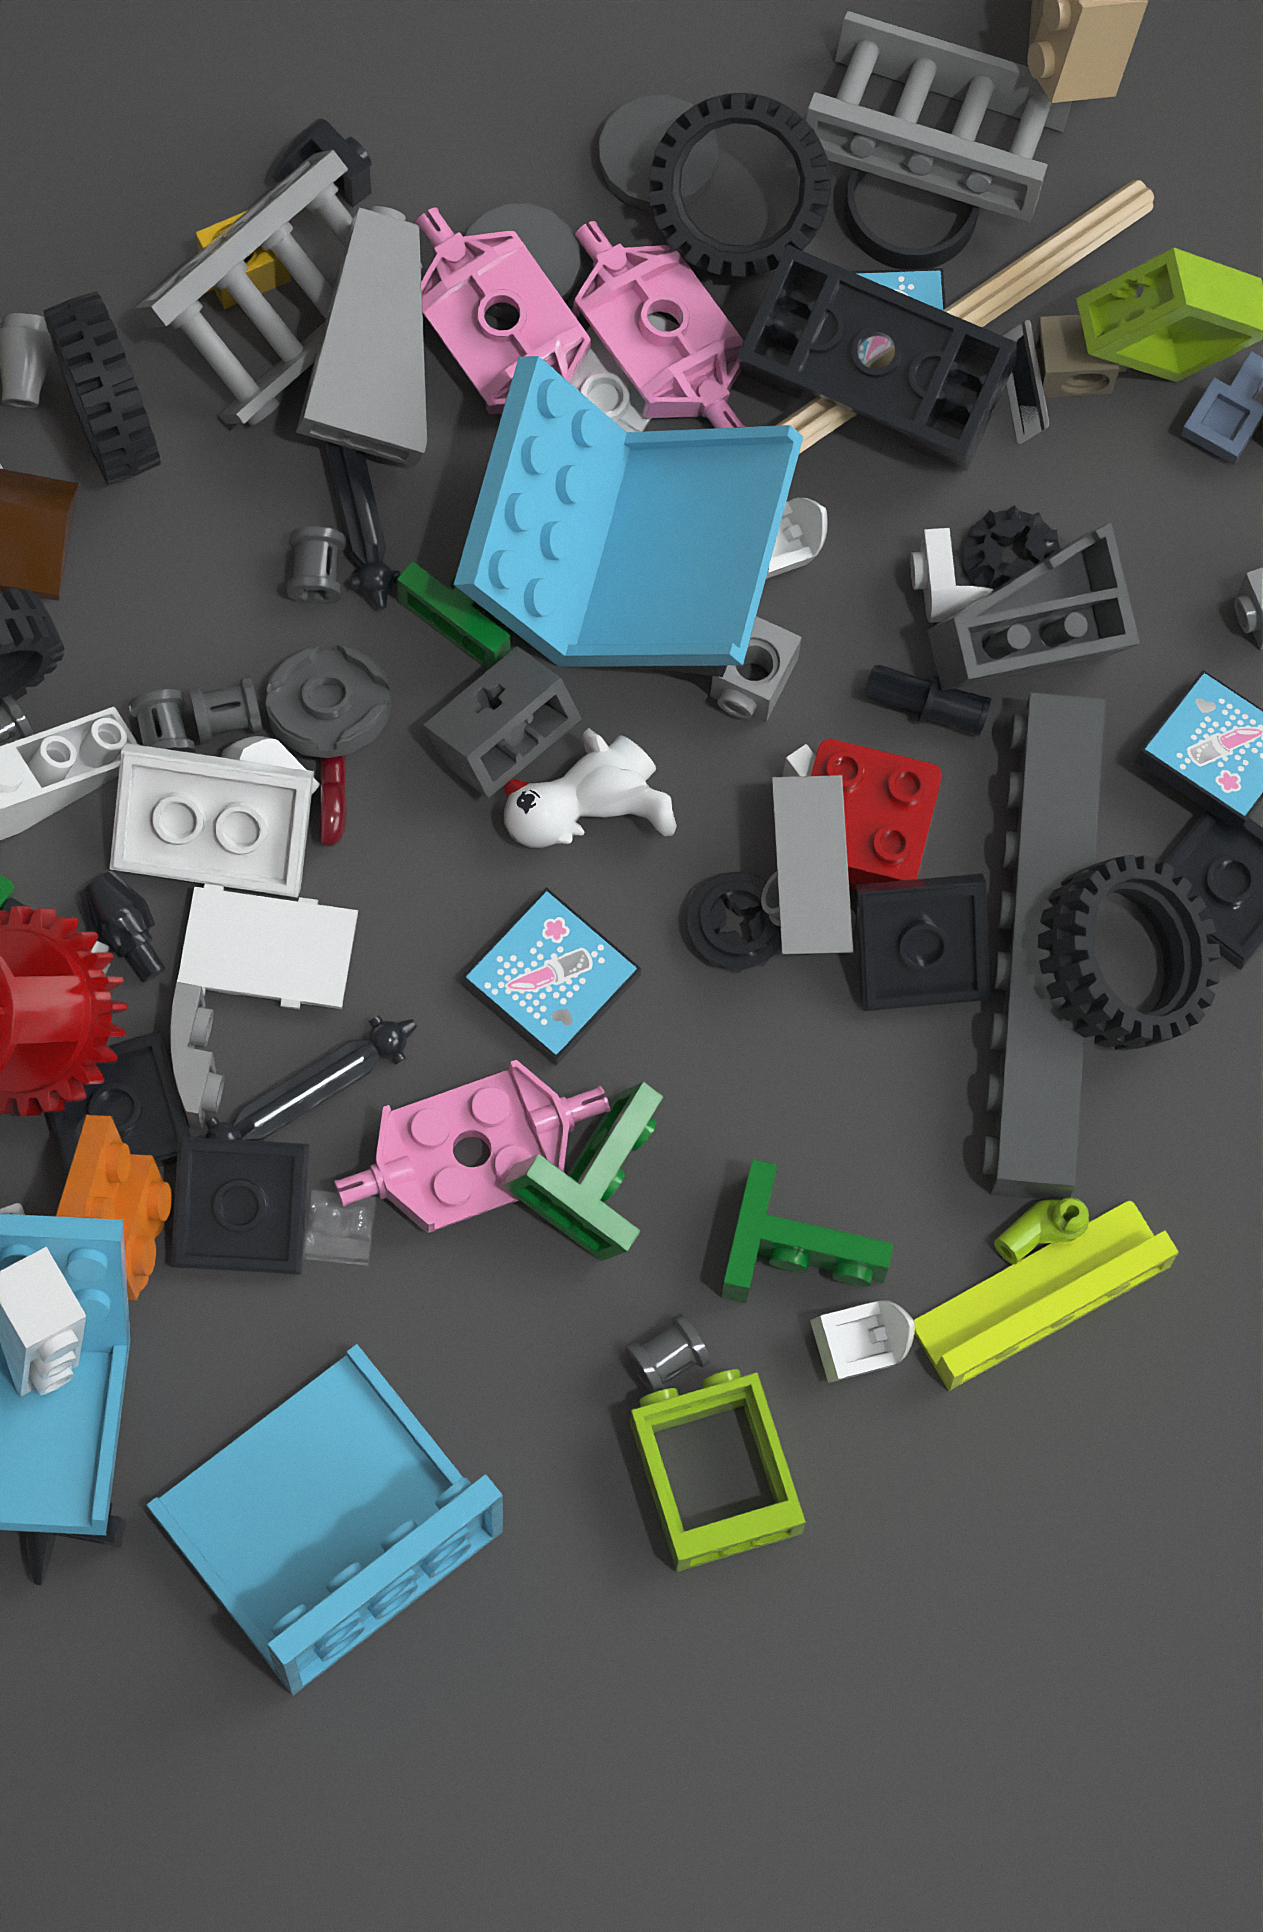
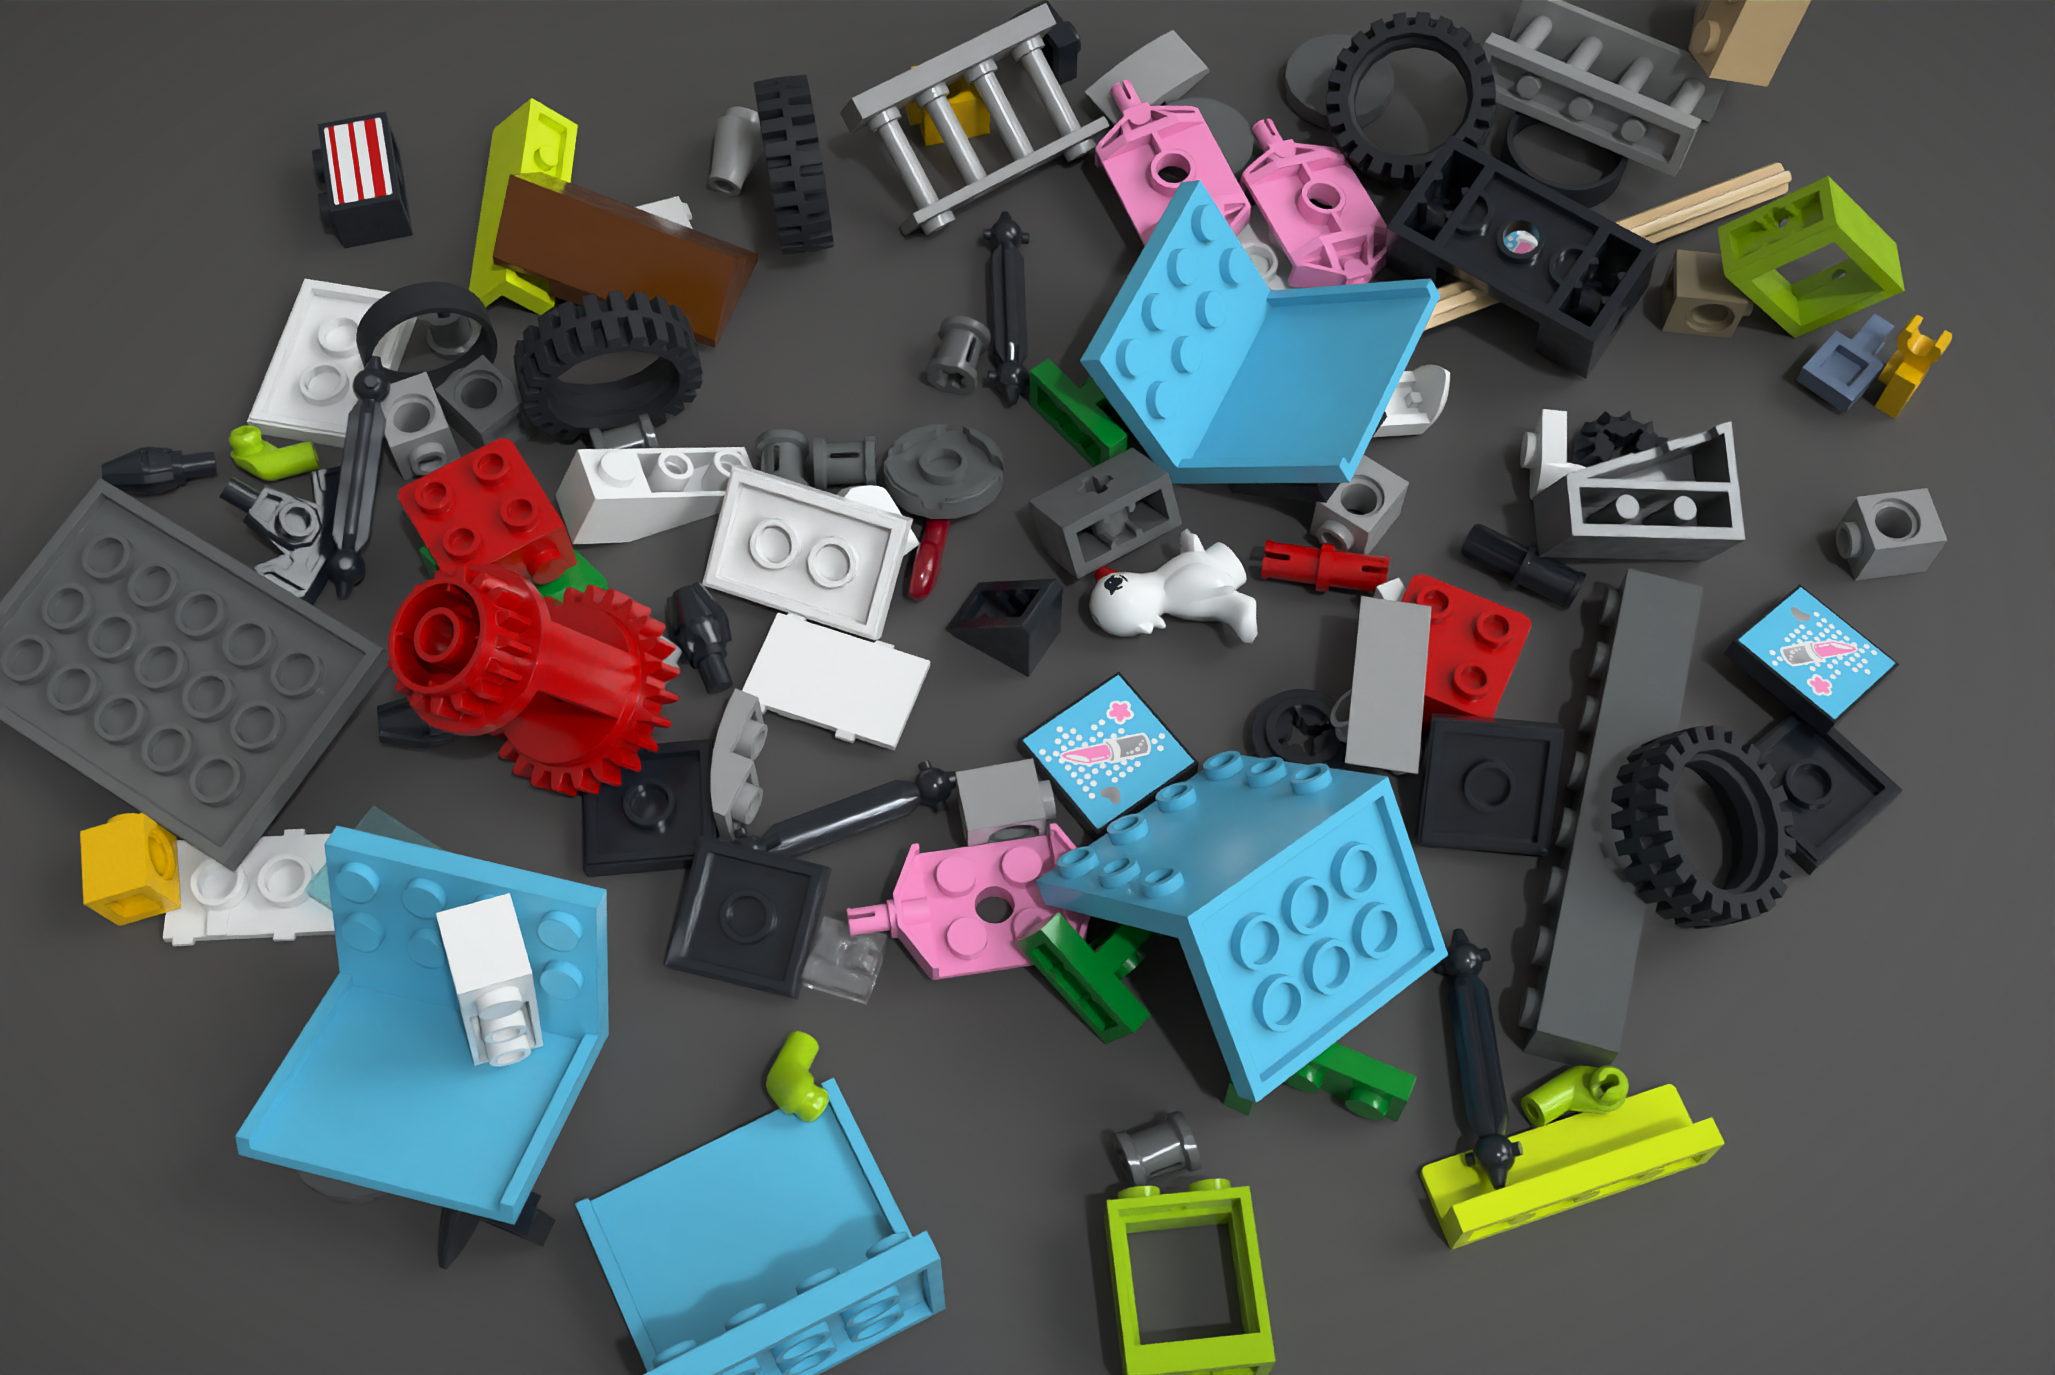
camera: 15 degrees right, 10 degrees down
(118, 1186) = (638, 878): orange plate -> none
(320, 1357) = (791, 1082): none -> lime arm
(371, 350) = (1044, 181): light grey slope -> none
(426, 853) = (1011, 620): none -> black slope
(458, 186) = (1158, 72): none -> light grey slope
(461, 1047) = (1003, 802): none -> light grey brick
(731, 737) = (1324, 567): none -> red pin
(737, 1095) = (1284, 898): none -> medium azure bracket
(863, 1339) = (1368, 1174): white plate -> none
(949, 1209) = (1479, 1059): none -> black wheel
(1025, 386) = (1653, 317): sticker -> none

